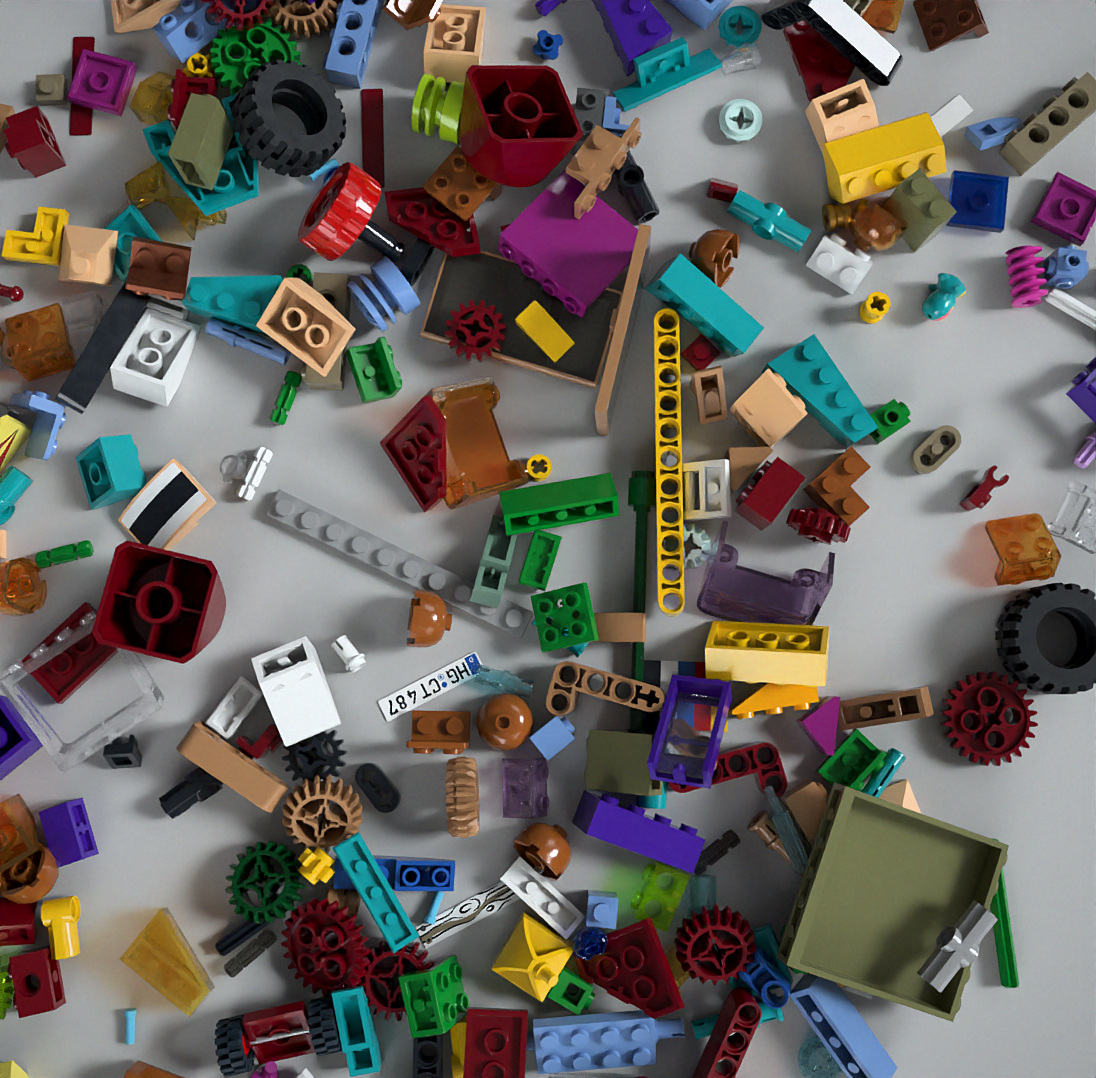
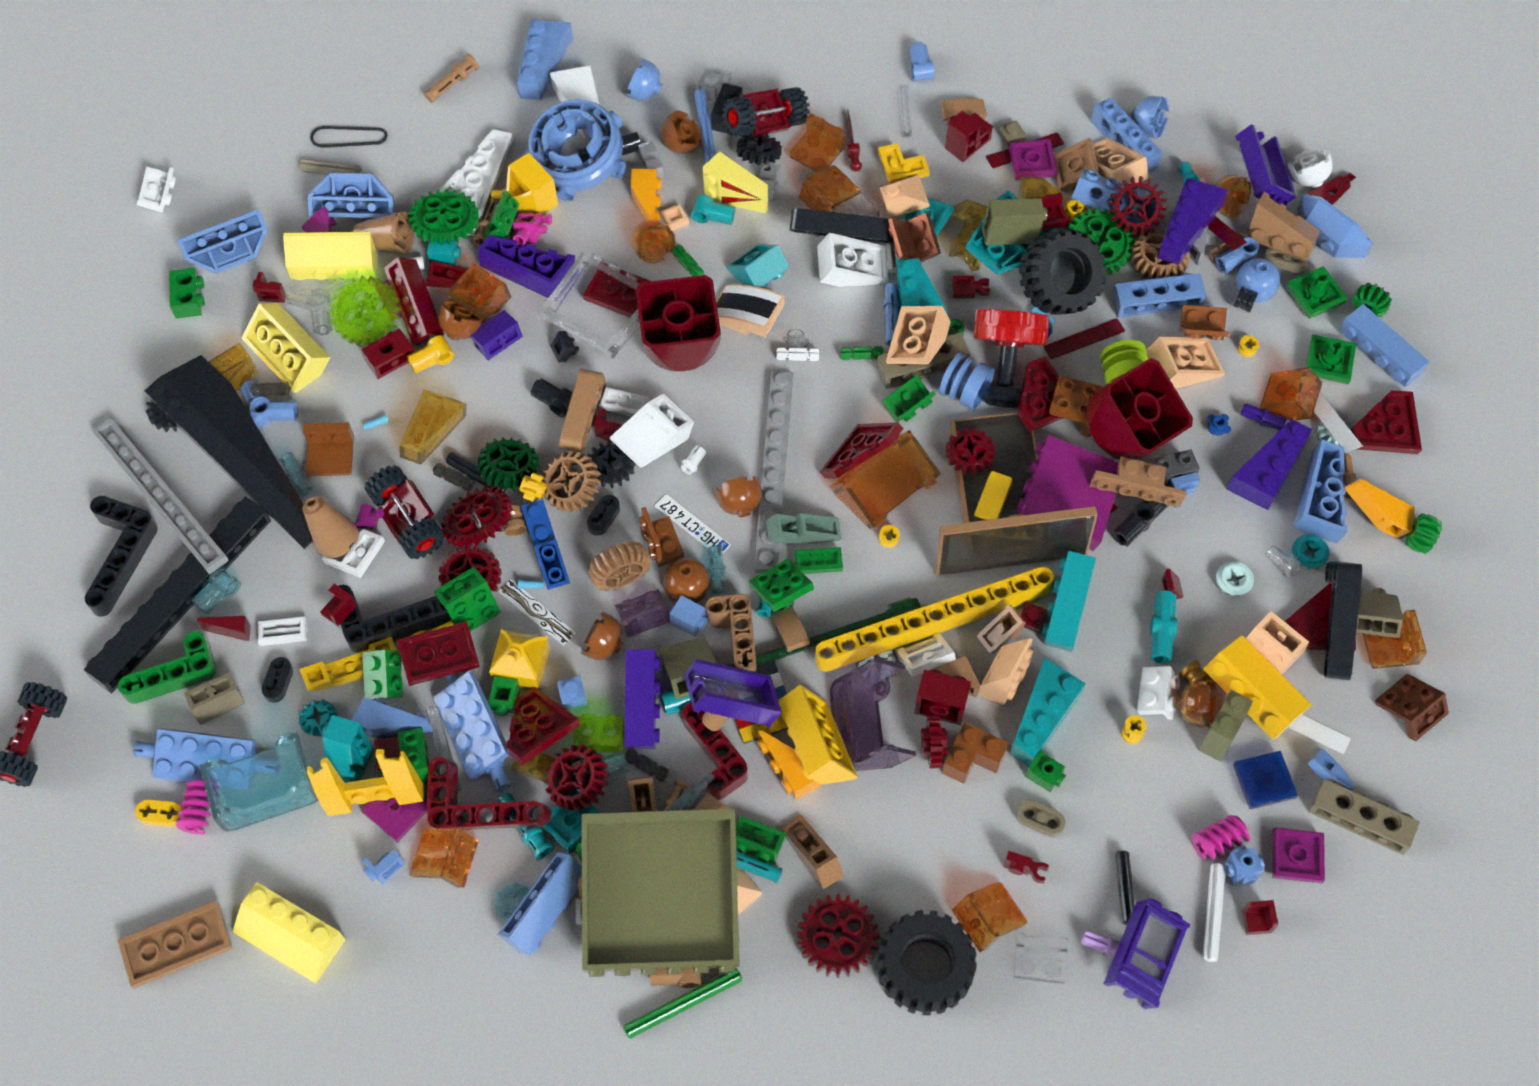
camera: 70 degrees right, 20 degrees down
(47, 422) = (785, 203): medium blue bracket -> none
(132, 35) = (1073, 161): none -> medium nougat tile
(249, 239) = (967, 287): none -> dark red plate
(357, 1031) = (424, 559): teal slope -> none
(375, 892) = (528, 532): teal tile -> none
(542, 897) = (565, 651): white plate -> none
(559, 504) = (866, 553): green brick -> none
(589, 942) = (544, 689): clear blue plate -> none
(665, 71) = (1242, 508): teal bracket -> none
(714, 254) = (1112, 596): dark orange cylinder -> none
(759, 873) = (642, 794): none -> medium nougat slope
(765, 975) = (563, 826): blue piece -> none
(821, 724) = (779, 806): magenta slope -> none
(942, 300) = (1166, 779): teal animal -> none
(957, 946) = (643, 943): light grey piece -> none
(1038, 397) = (1125, 885): none -> black axle

